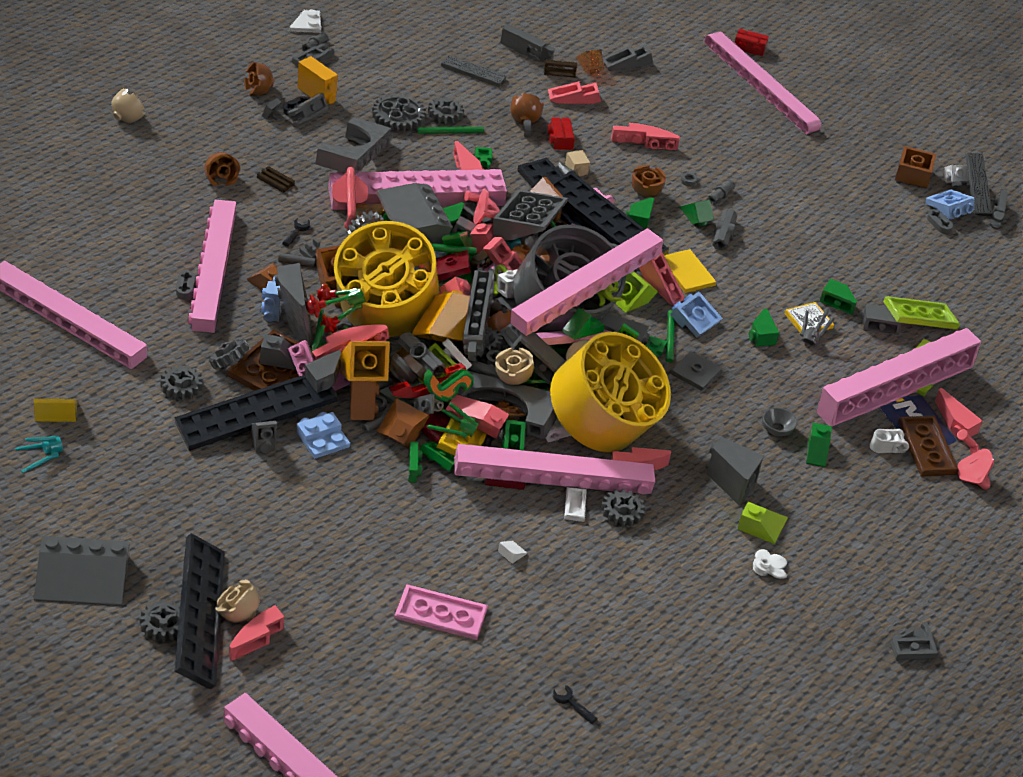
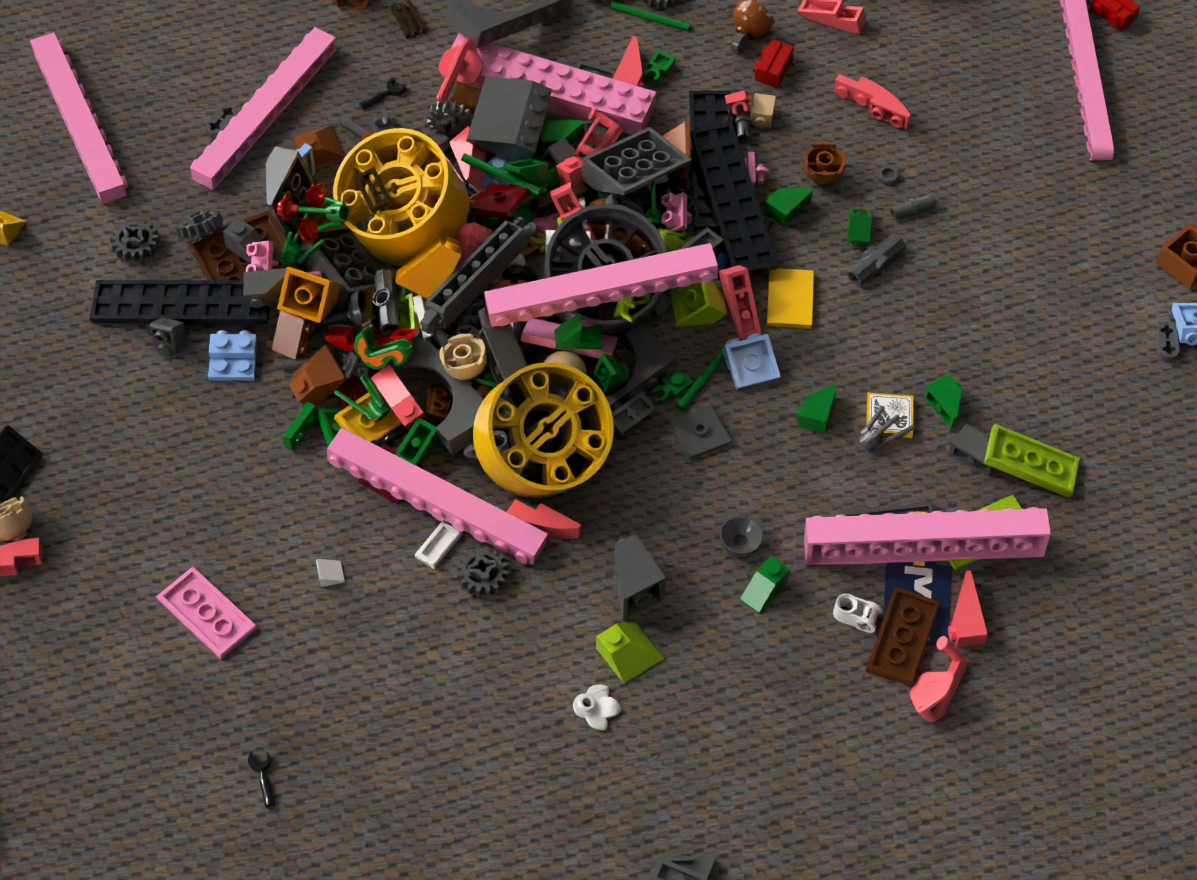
camera: 35 degrees right, 15 degrees up
(340, 339) = (320, 258): coral slope -> none
(372, 277) = (380, 205): none -> dark brown tile
(560, 158) = (738, 99): none -> coral tile

